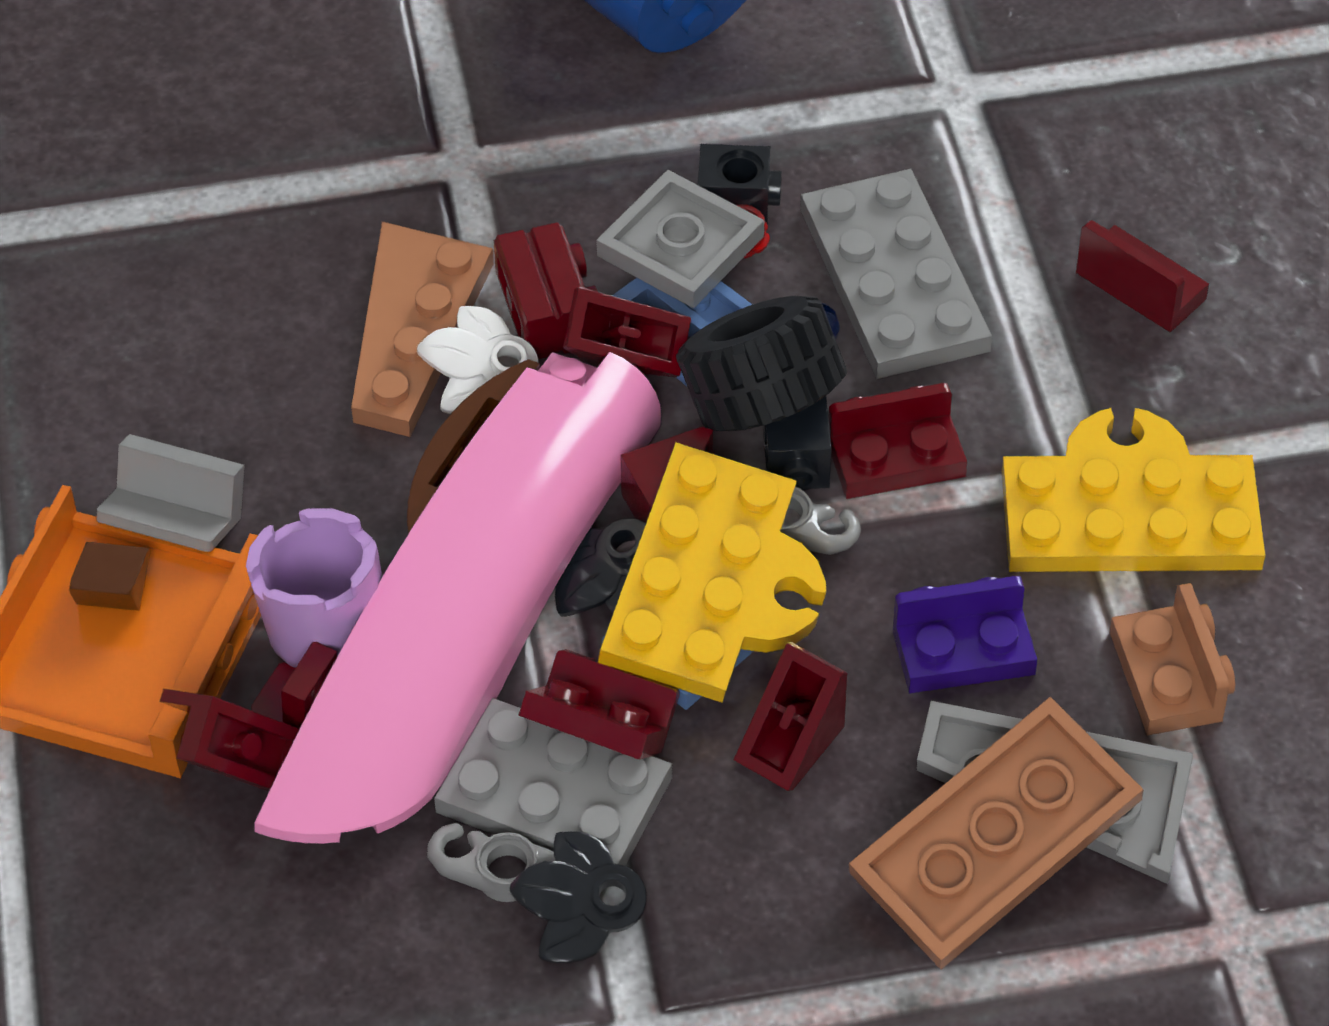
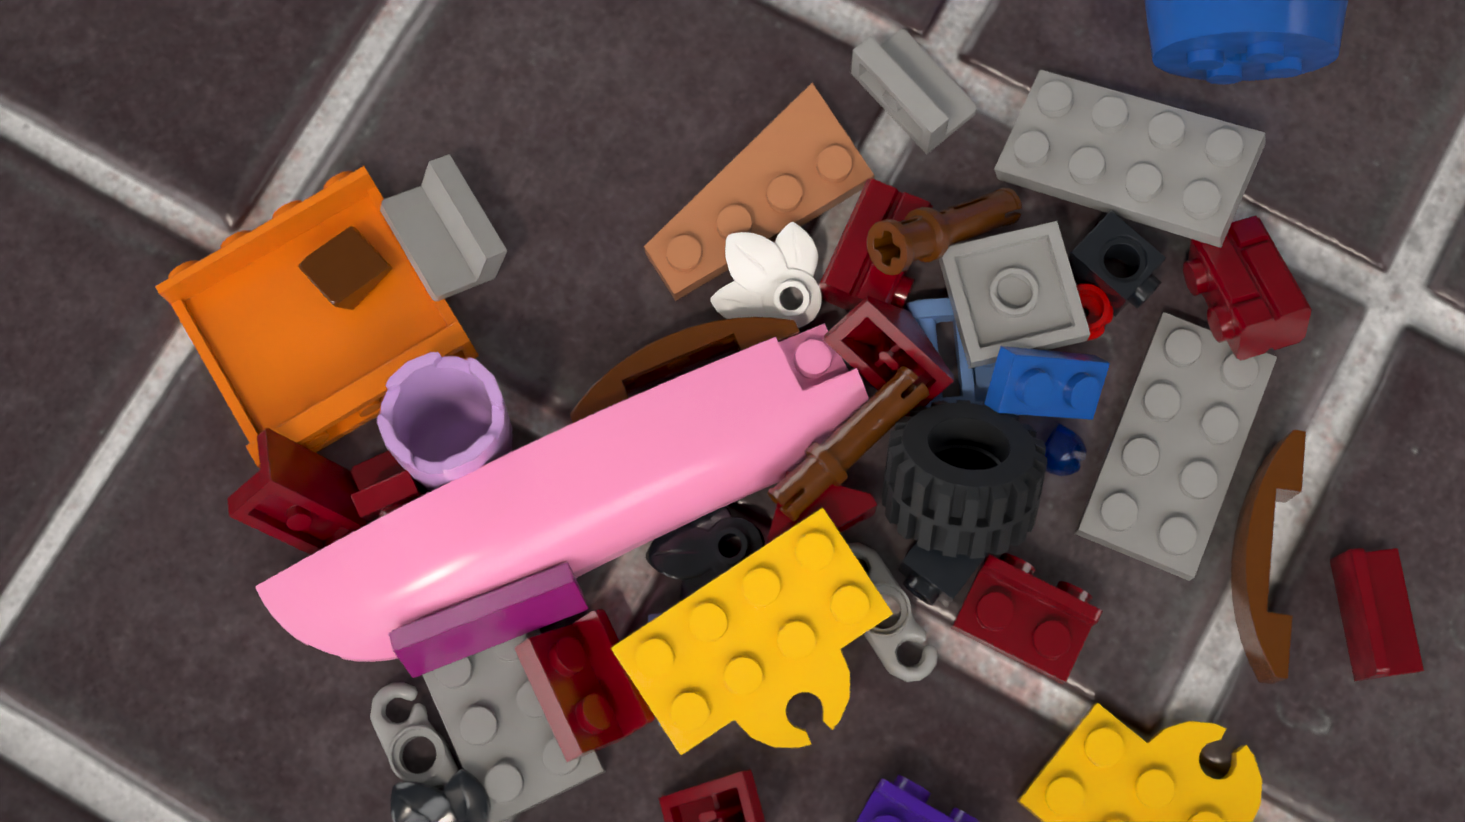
camera: 45 degrees right, 25 degrees up
(463, 184) = (912, 88): none -> light grey panel
(480, 704) = (488, 620): none -> magenta tile
(579, 231) = (929, 233): none -> reddish brown pin
(650, 416) = (849, 442): none -> reddish brown pin
(674, 107) = (1131, 157): none -> light grey plate
(760, 274) = (1046, 383): none -> blue plate
(848, 132) = (1248, 291): none -> dark red brick
(1068, 331) = (1263, 633): none -> reddish brown slope

